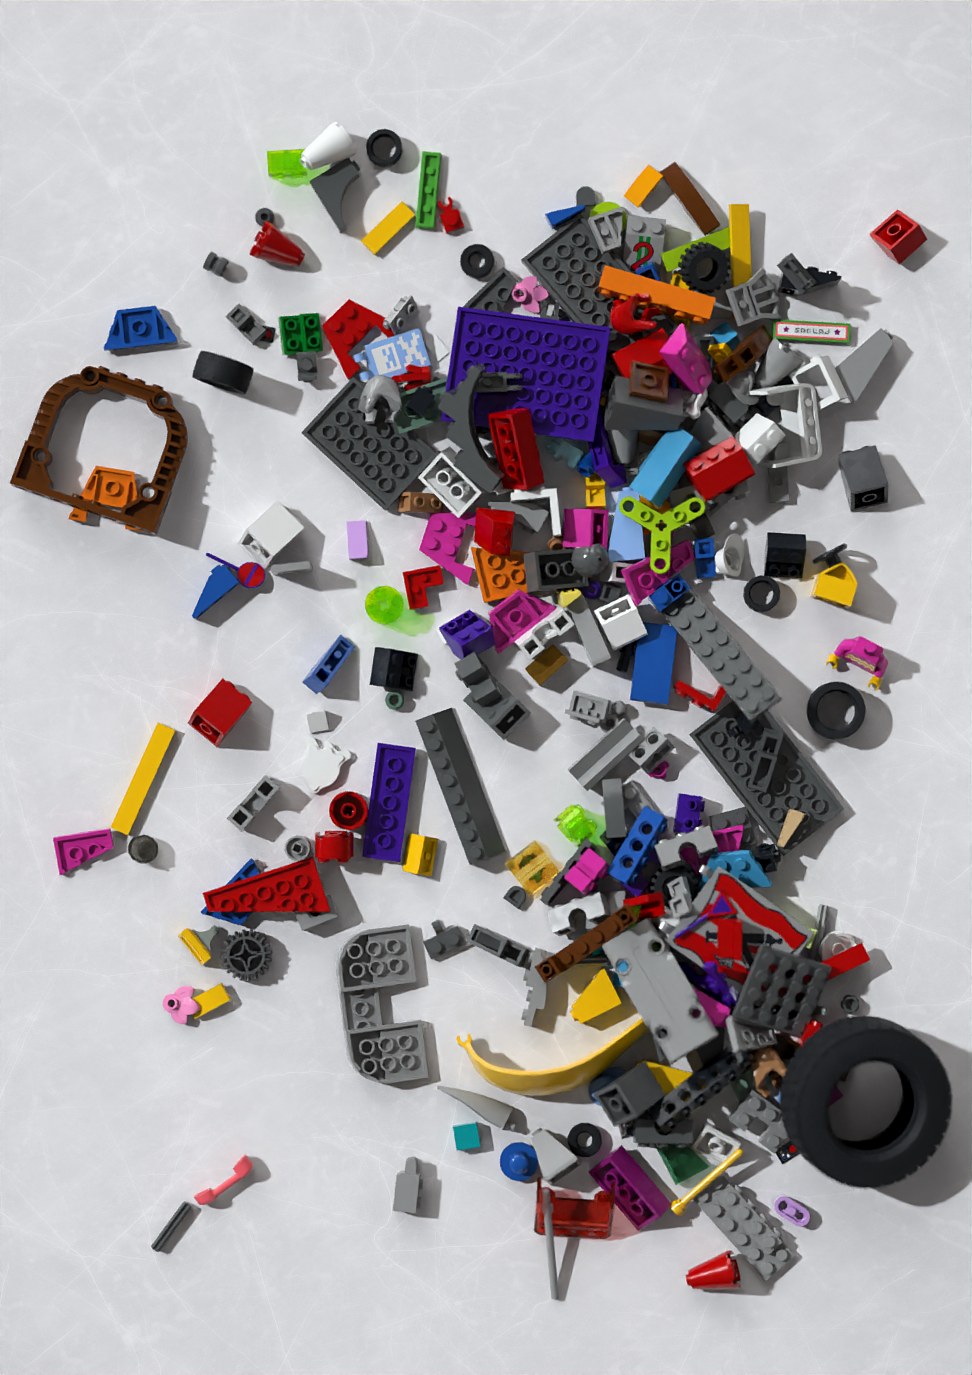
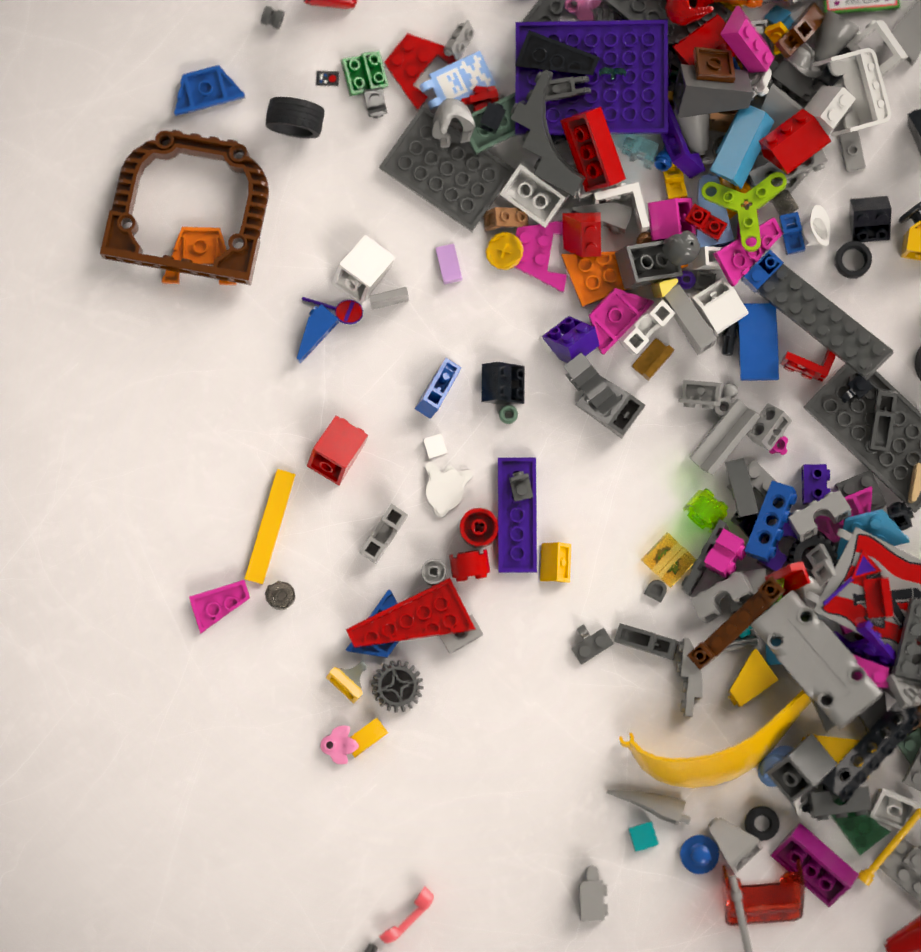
camera: 10 degrees left, 5 degrees down
(246, 324) = (310, 71): dark grey slope -> none
(376, 1050) = (537, 761): light grey plate -> none
(385, 616) = (479, 313): clear neon green brick -> none
(396, 775) = (520, 486): none -> dark grey bracket
(414, 535) = (504, 251): none -> yellow tile
(417, 581) = (513, 296): red plate -> none
(460, 786) = (585, 489): dark grey slope -> none
(487, 346) = (551, 55): none -> black wing
(547, 372) = (612, 71): none -> piece
(619, 537) = (705, 222): none -> red slope

